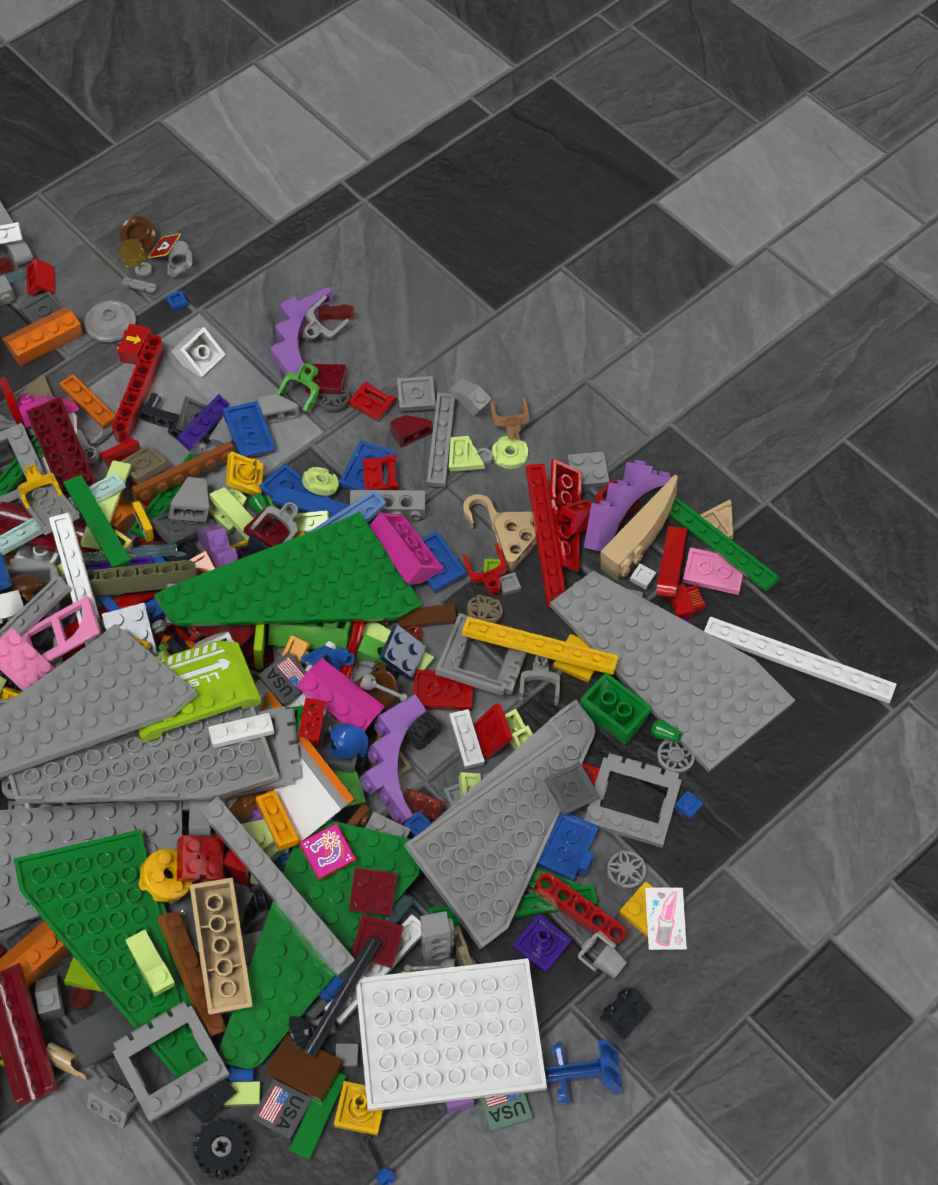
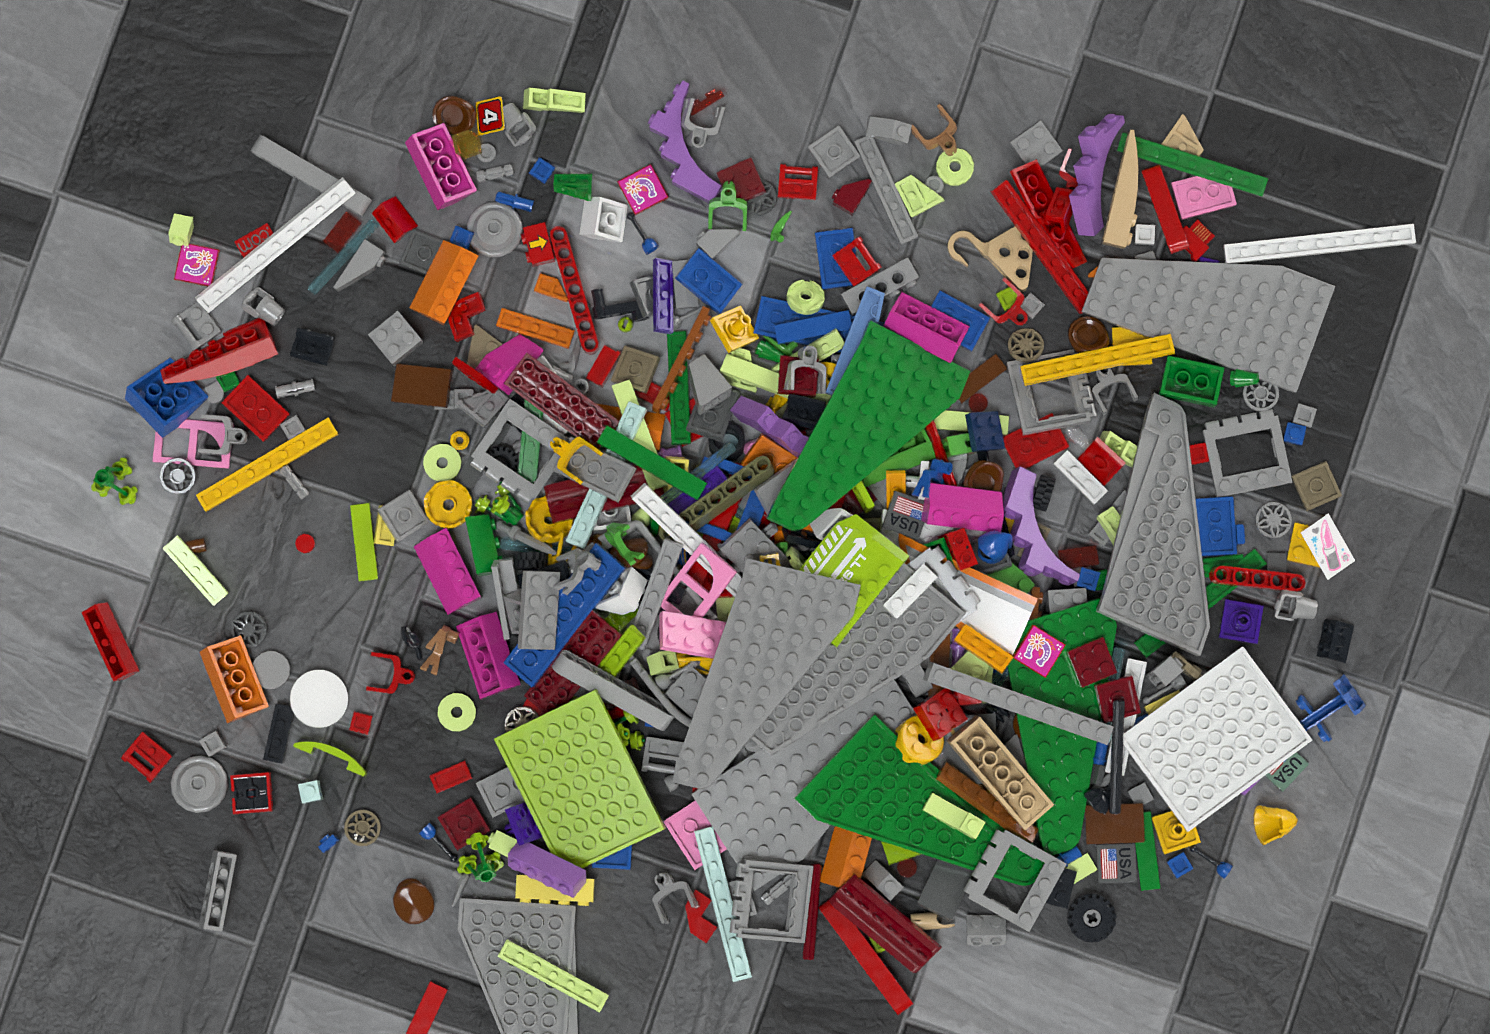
camera: 25 degrees left, 25 degrees up
(23, 559) = (614, 537): none -> bright green piece
(48, 360) = (460, 315): none -> red plate
(81, 312) = (461, 237): none -> blue tile
(100, 258) = (440, 166): none -> dark pink slope
(120, 378) = (550, 287): none -> orange tile
(139, 309) = (514, 201): none -> blue axle
(143, 521) = (682, 432): yellow tile -> none
(161, 433) = (629, 326): none -> lime hinge
(192, 318) = (574, 185): none -> green wing
(220, 257) = (553, 100): none -> yellowish green slope
(221, 386) = (648, 245): none -> hinge
(245, 349) = (643, 189): none -> tile
(336, 425) = (779, 226): none -> bright green bar
(343, 1146) = (1179, 865): none -> blue plate
(369, 682) = (979, 480): light grey hinge -> none
(462, 1155) = (1272, 823): none -> yellow helmet
(482, 701) = (1077, 437): none -> clear cone
(545, 624) = (1087, 334): none -> reddish brown piece
(571, 788) = (1195, 478): dark grey plate -> none
(684, 861) = (1316, 486): none -> dark tan tile
(706, 792) = (1304, 415): none -> light grey plate

